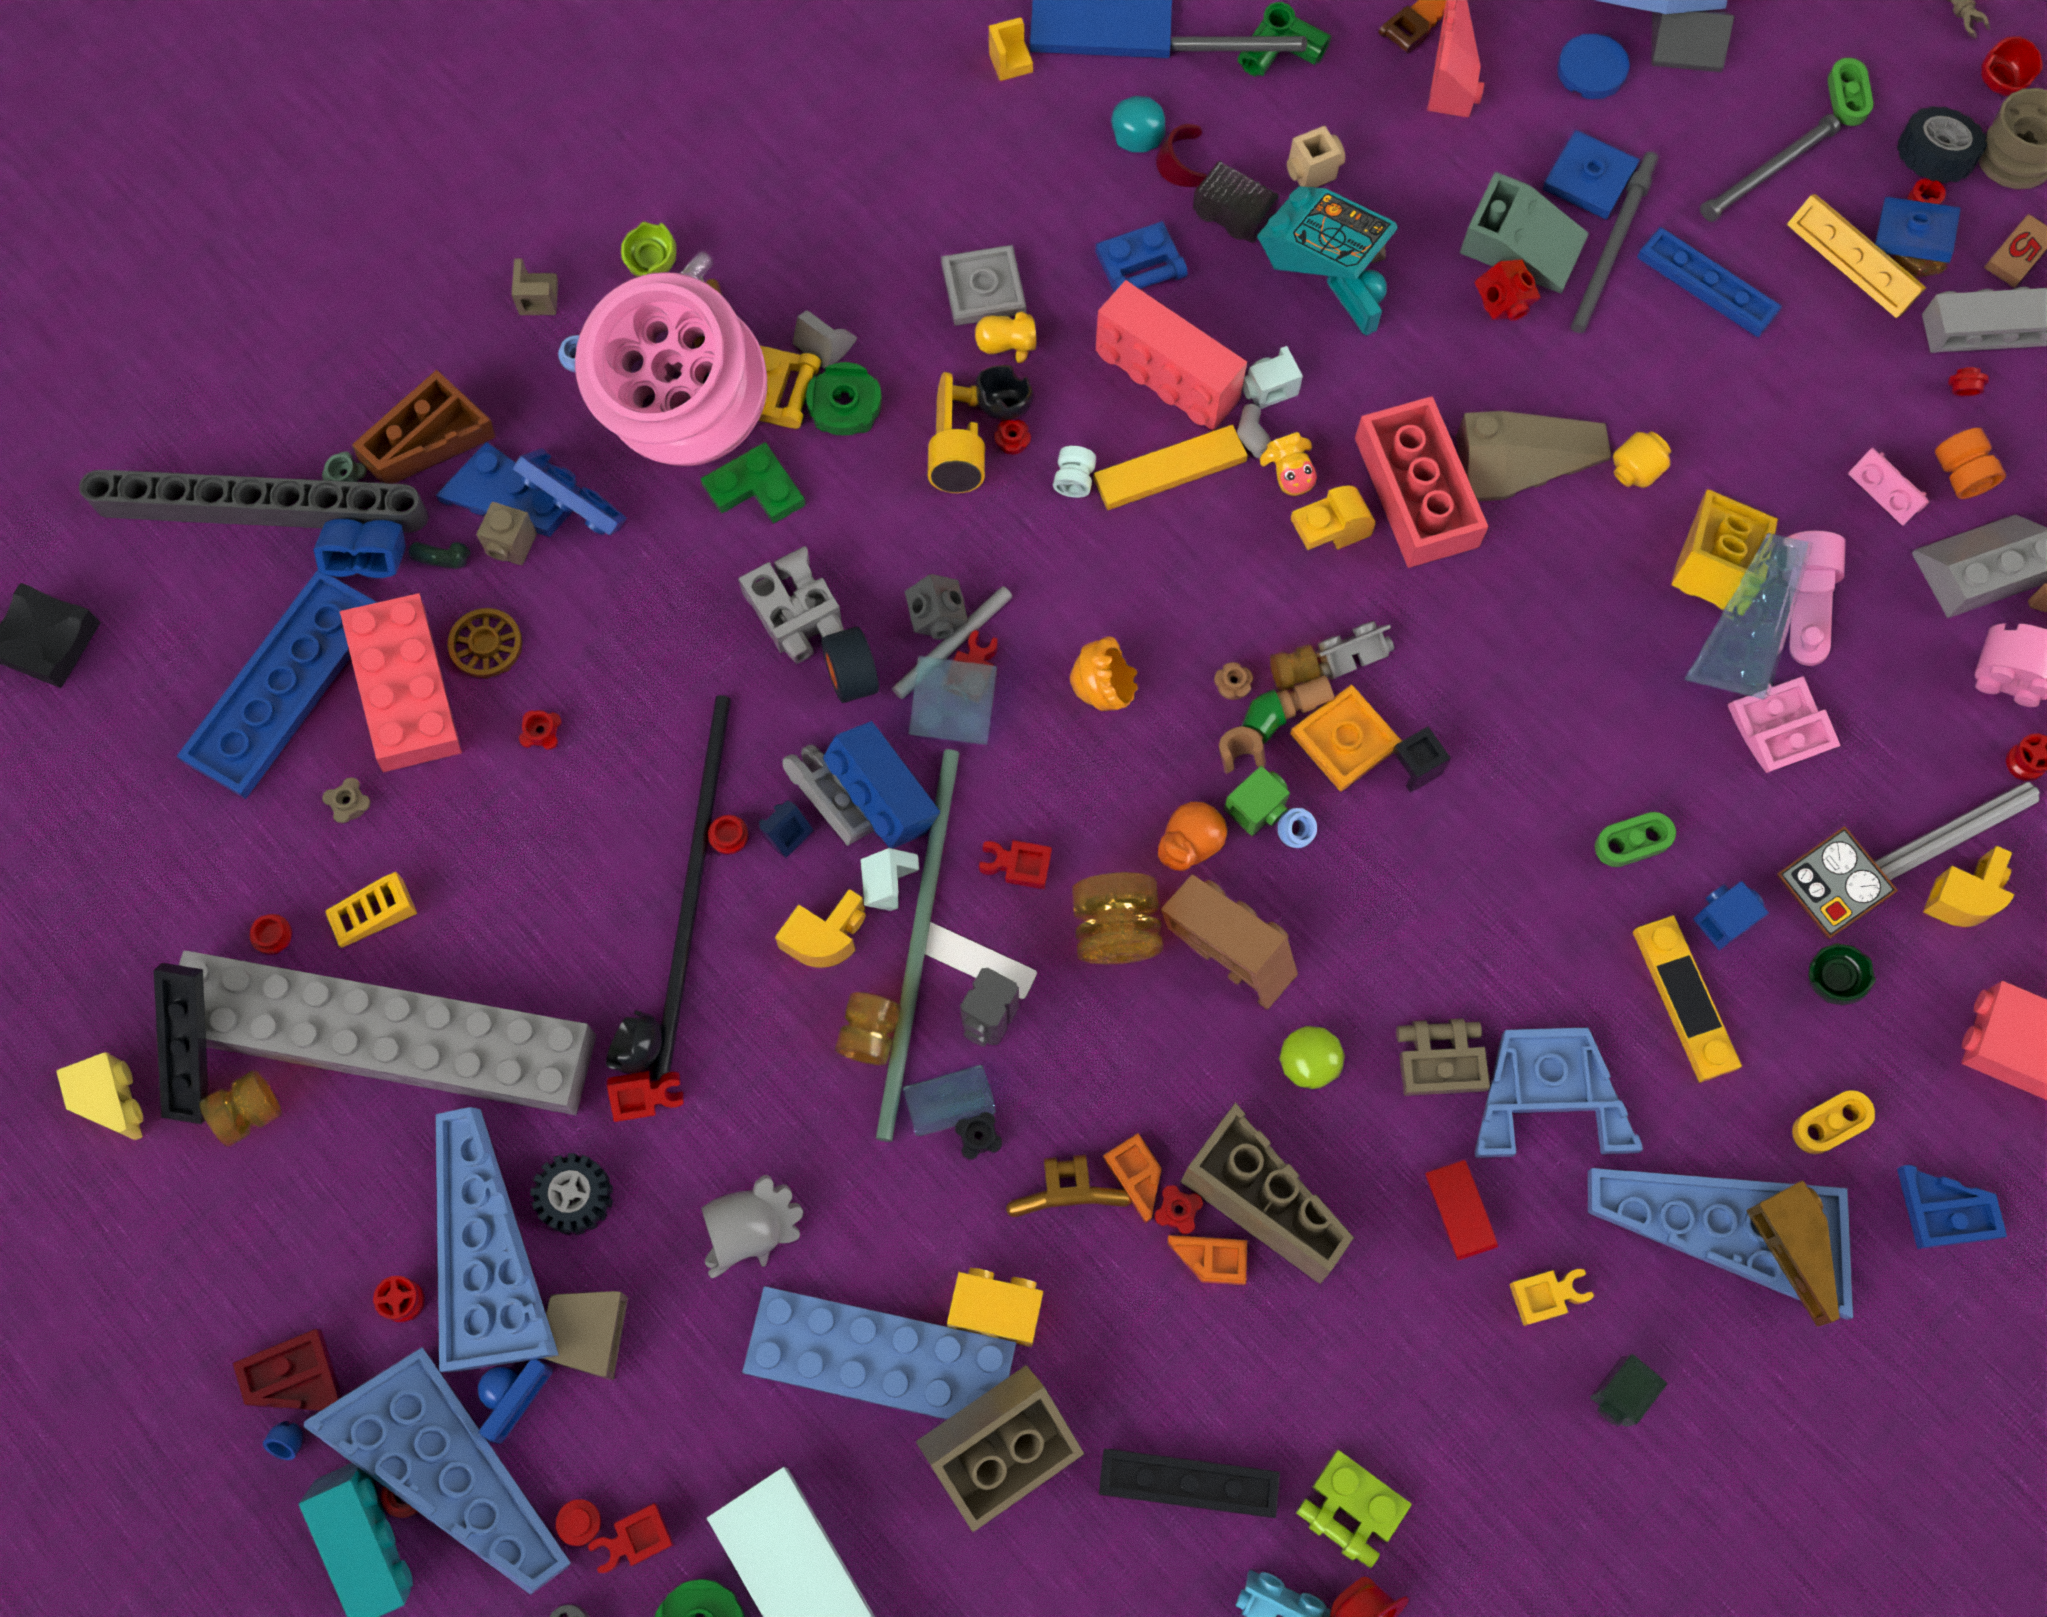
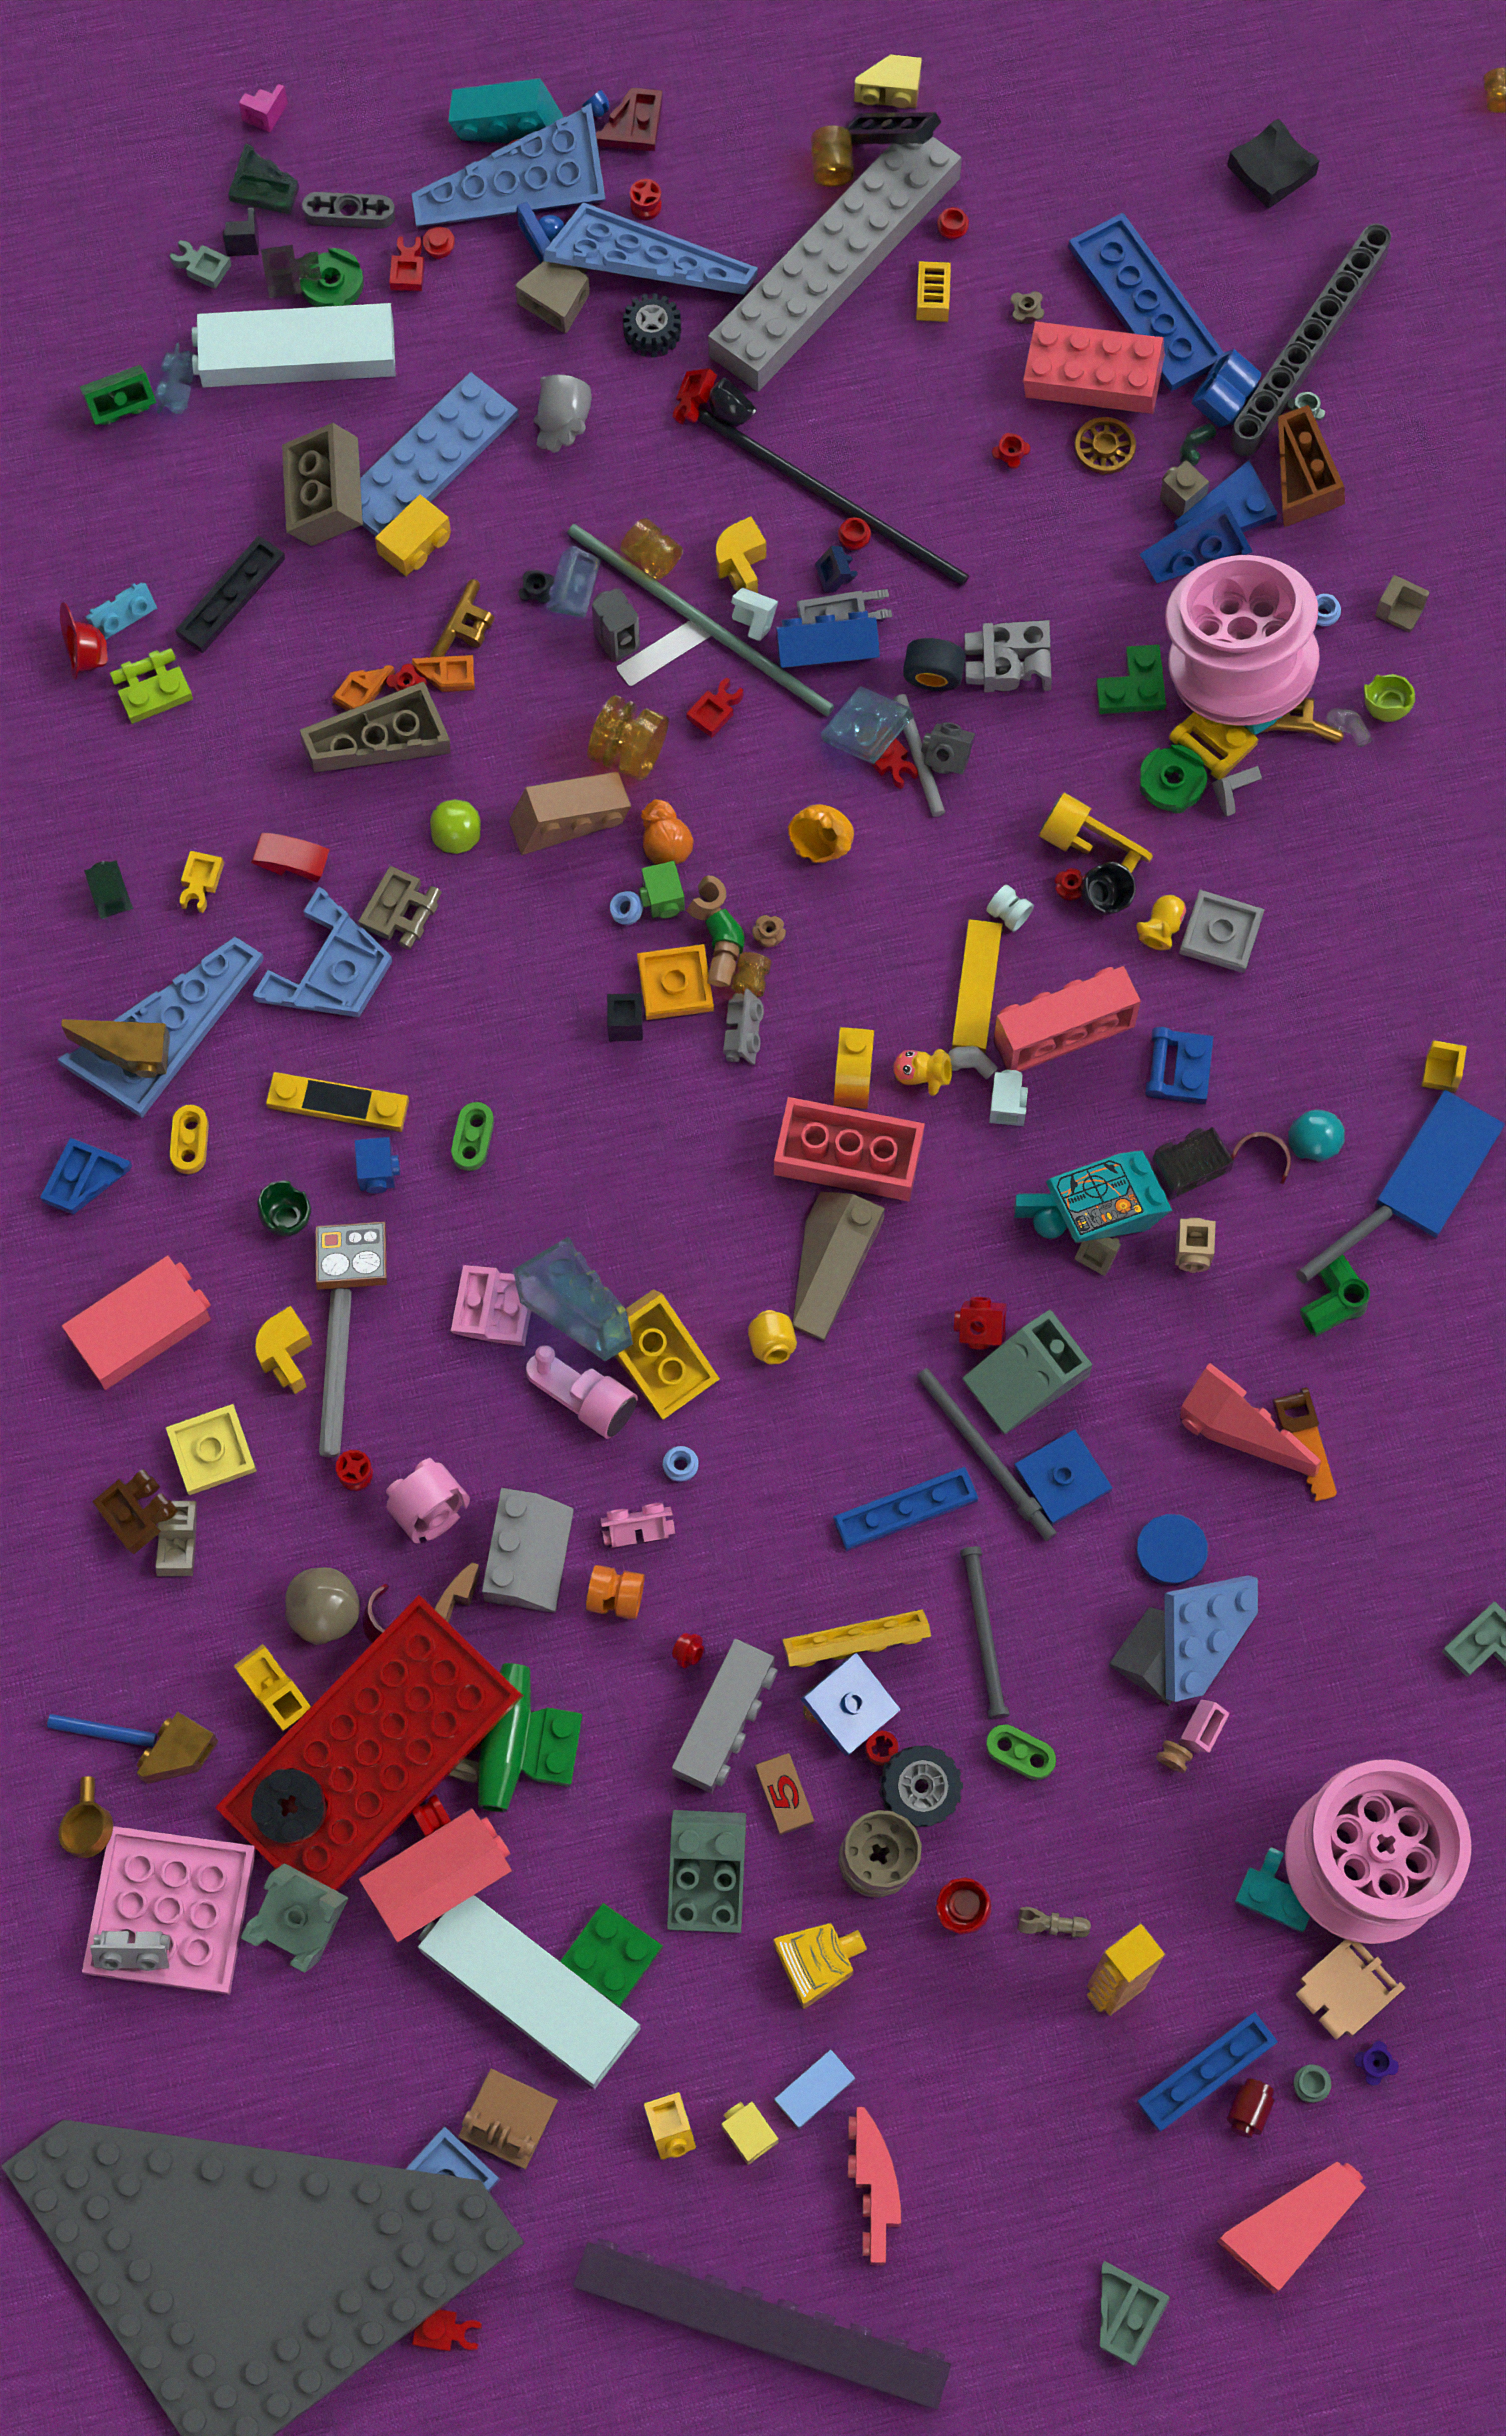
camera: 120 degrees right, 0 degrees up
(1812, 471) = (680, 1453): none -> light blue plate

